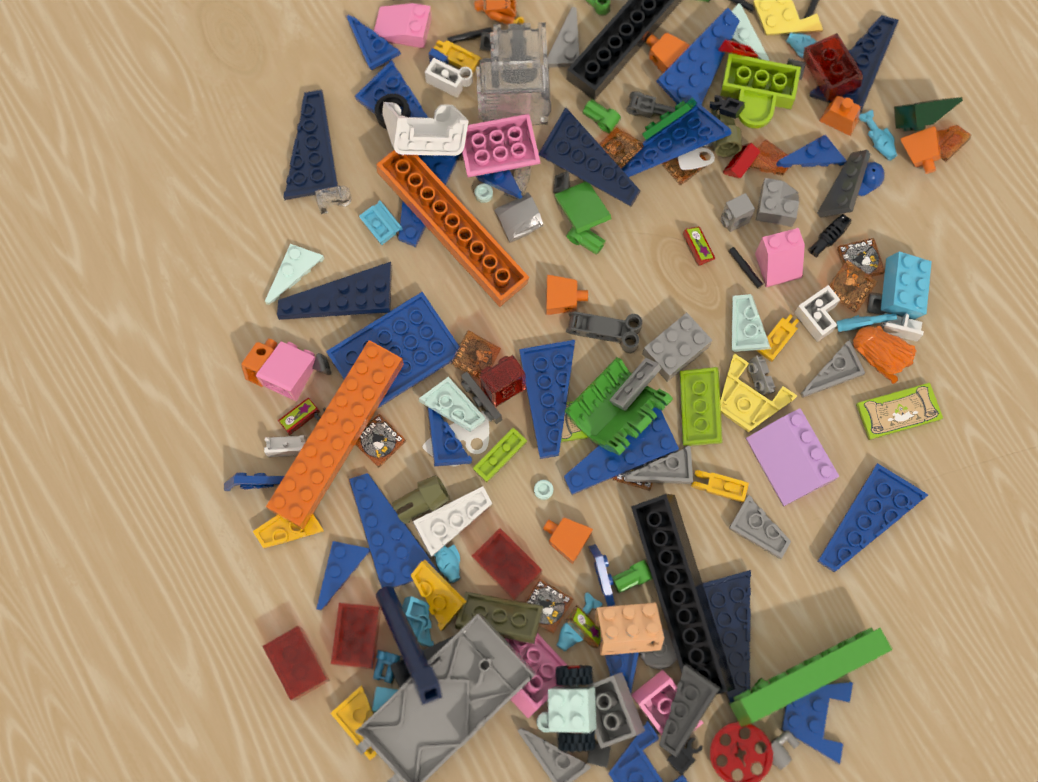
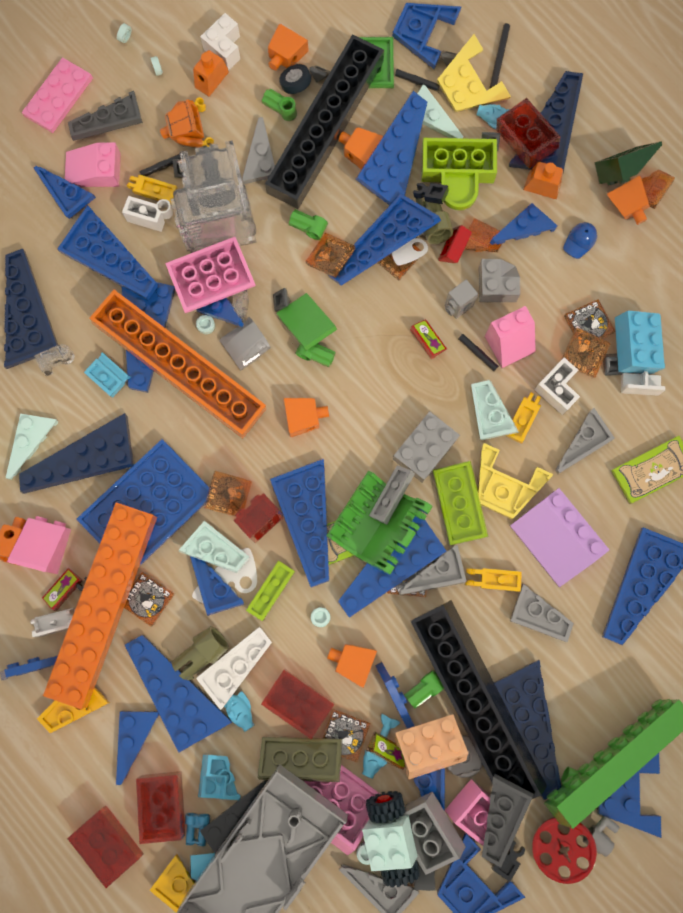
camera: 10 degrees left, 5 degrees up
(321, 364) = (75, 532): dark grey slope -> none
(395, 98) = (89, 249): black tyre -> none
(421, 672) = (215, 820): dark blue brick -> none
(426, 136) = (133, 279): white windscreen -> none
(438, 55) = (129, 191): blue plate -> none
(439, 594) = (237, 748): yellow wing -> none
(480, 398) = (240, 537): dark grey plate -> none
(580, 154) = (294, 268): dark blue wing -> none
(606, 328) = (352, 441): dark grey piece -> none
(646, 105) = (351, 206): dark grey connector -> none
(667, 118) = (375, 214): green wing -> none
(737, 49) = (430, 131): red slope -> none
(758, 368) = (508, 453): light grey hinge -> none
(830, 234) = (555, 304): black hinge -> none
(846, 187) = (563, 251): dark grey wing -> none
(859, 322) = (599, 388): medium azure animal -> none
(882, 139) = (588, 197): medium azure animal -> none
(884, 351) = (630, 413): orange hair -> none

